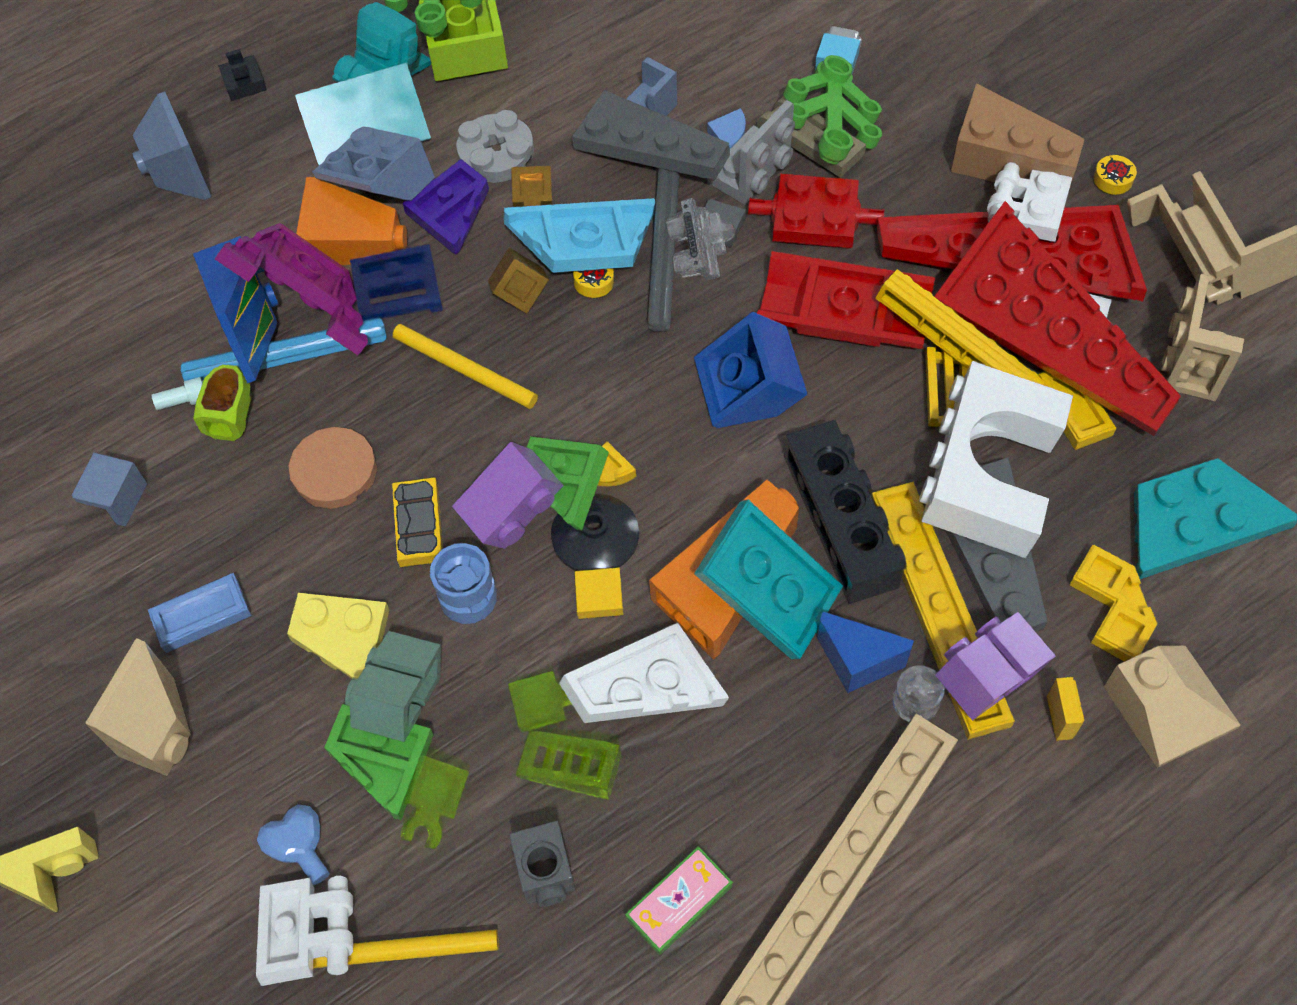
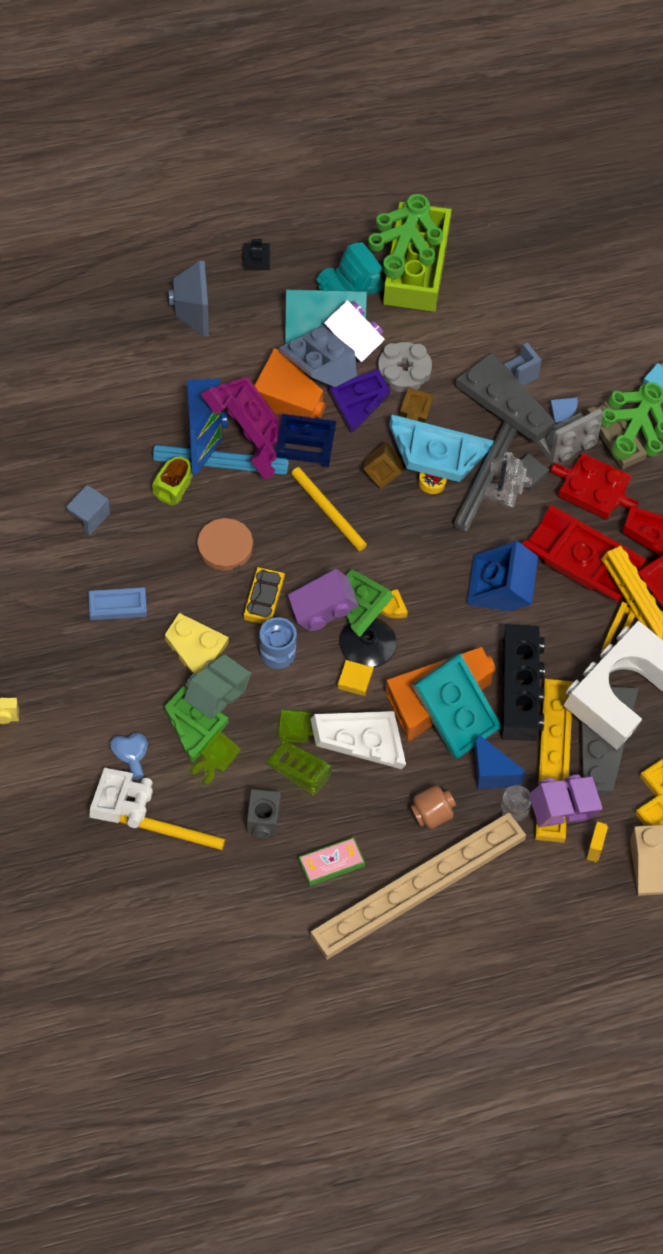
camera: 15 degrees right, 0 degrees up
(142, 713) = (68, 650): tan slope -> none
(178, 395) = (149, 465): light aqua bar -> none
(402, 111) = (354, 329): none -> brick
(800, 749) = (433, 807): none -> nougat head

